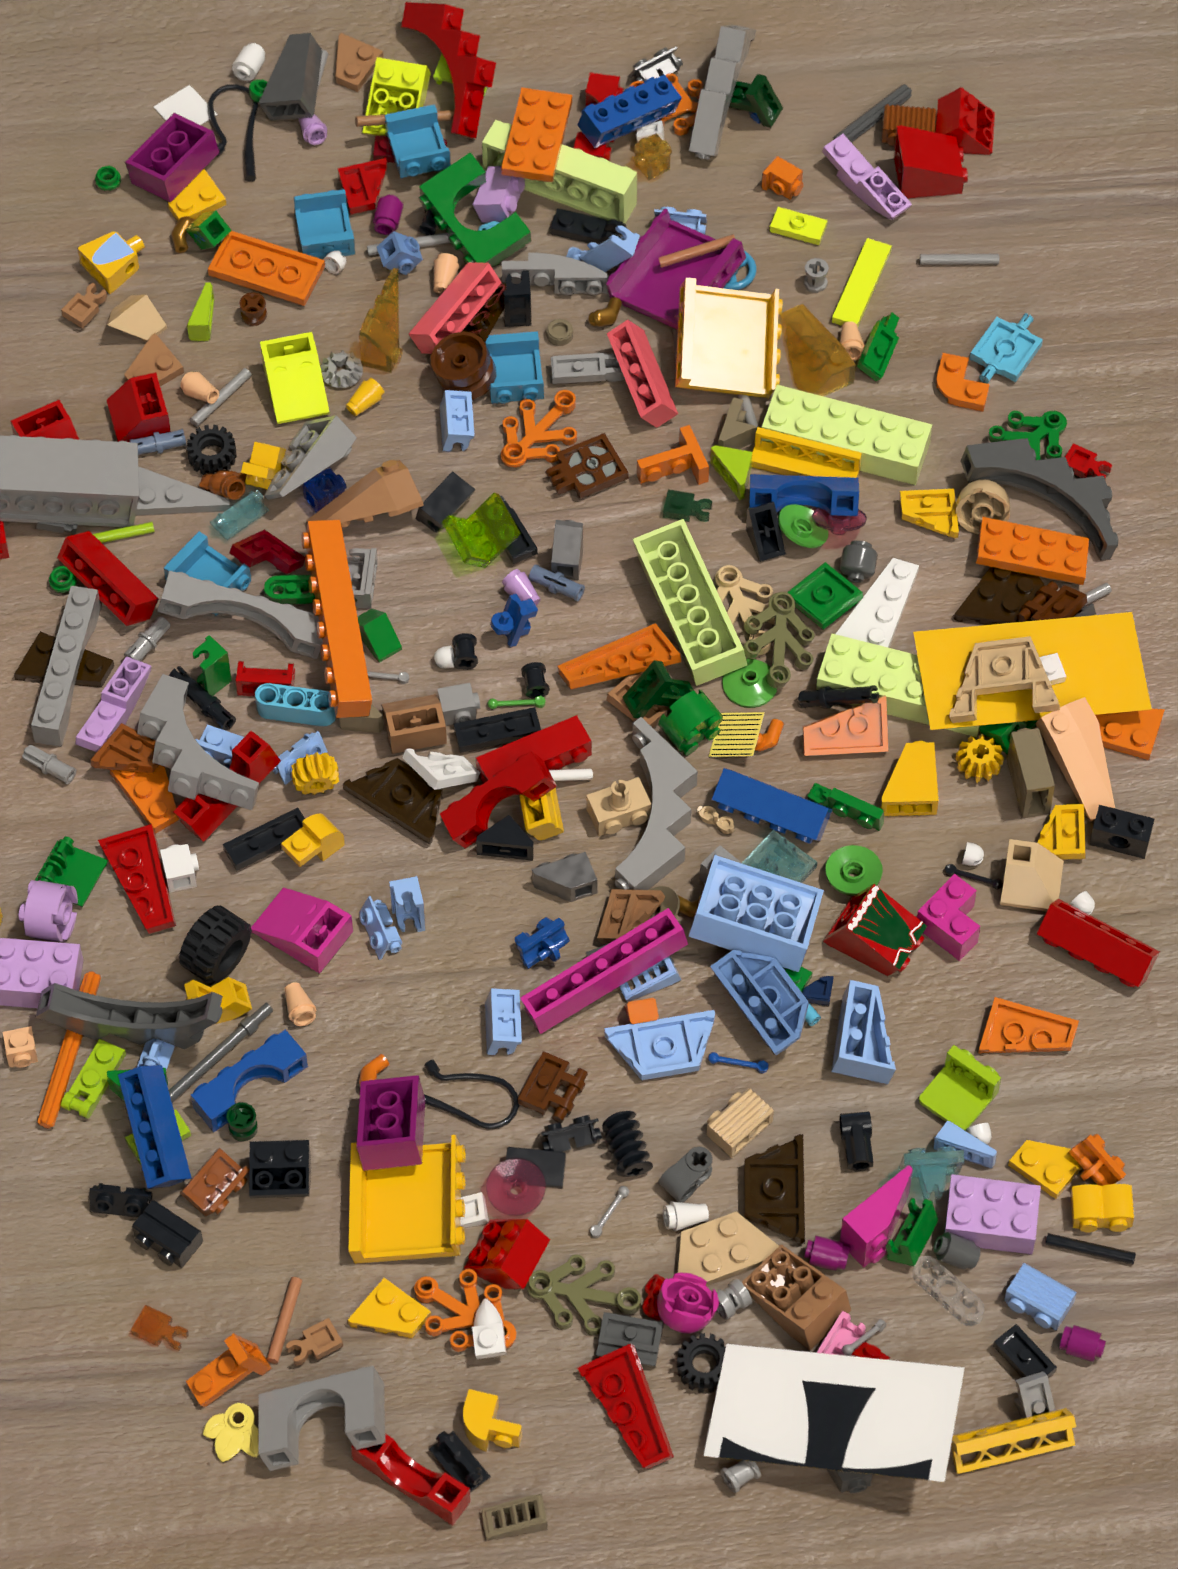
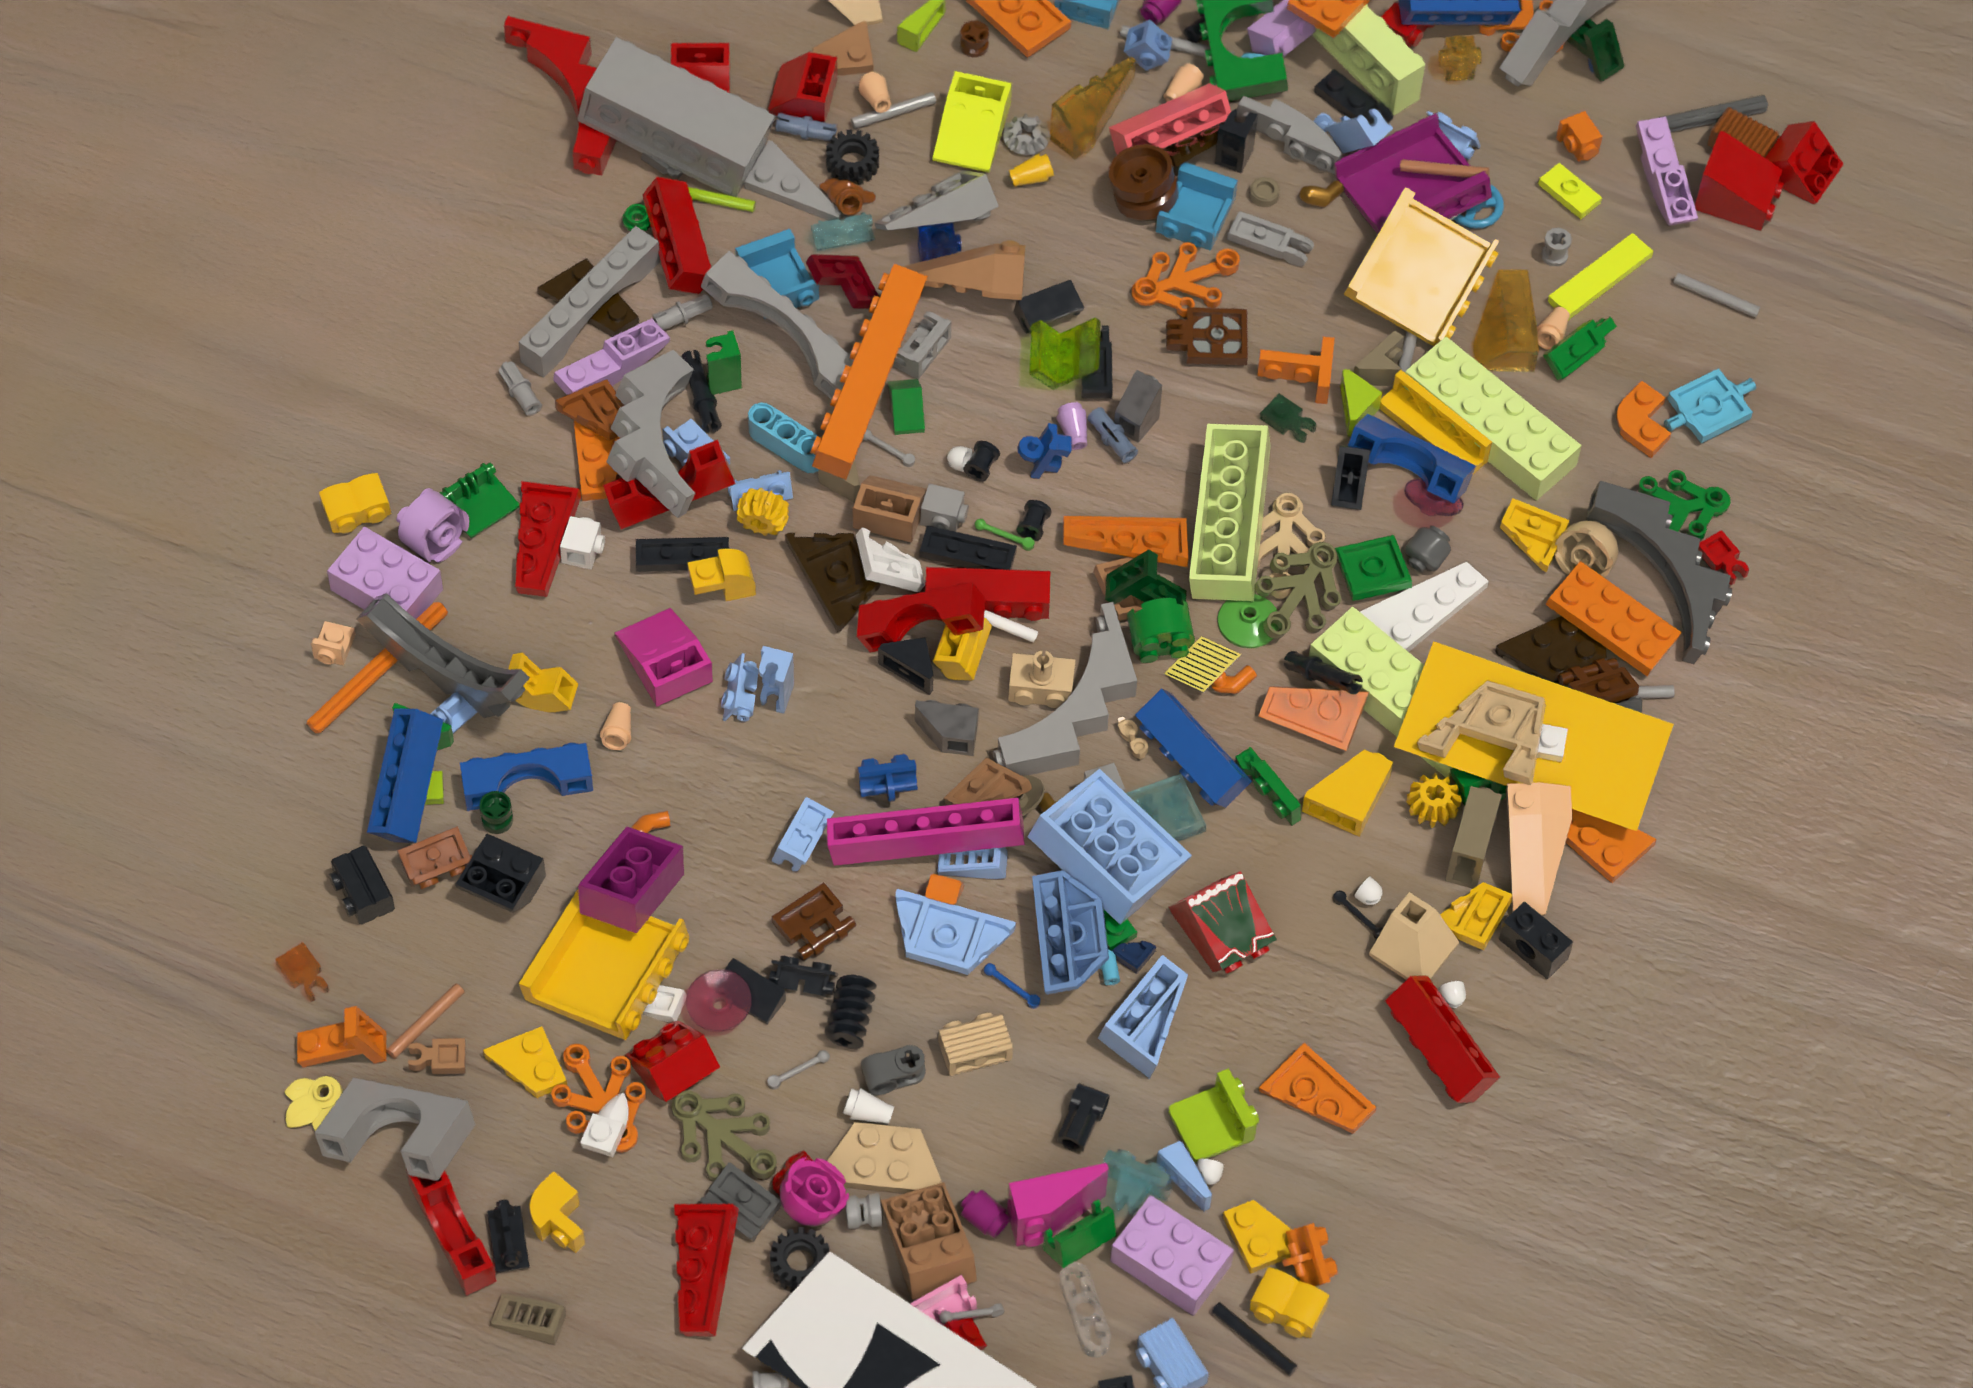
camera: 25 degrees right, 0 degrees up
(93, 1078) = (378, 706): lime plate -> none
(111, 1200) = (331, 828): black hinge -> none
(215, 944) = (566, 630): black tyre -> none
(246, 1027) = (556, 724): dark grey bar -> none
(251, 678) = (757, 391): red hinge -> none
(263, 464) = (894, 191): yellow brick -> none
(291, 589) = (849, 320): green plate -> none
(338, 265) = (1081, 27): white hinge -> none
(433, 1070) = (710, 852): black piece -> none
(456, 419) = (1108, 231): light blue hinge -> none
(642, 373) = (1318, 267): coral brick -> none
(650, 129) = (1480, 32): white plate -> none
(777, 1189) = (973, 1126): dark brown wing -> none
(798, 526) = (1386, 486): bright green dish -> none
(853, 860) = (1238, 840): bright green dish -> none
(948, 919) = (1304, 938): dark pink brick -> none
(957, 1251) = (1114, 1274): dark grey brick -> none

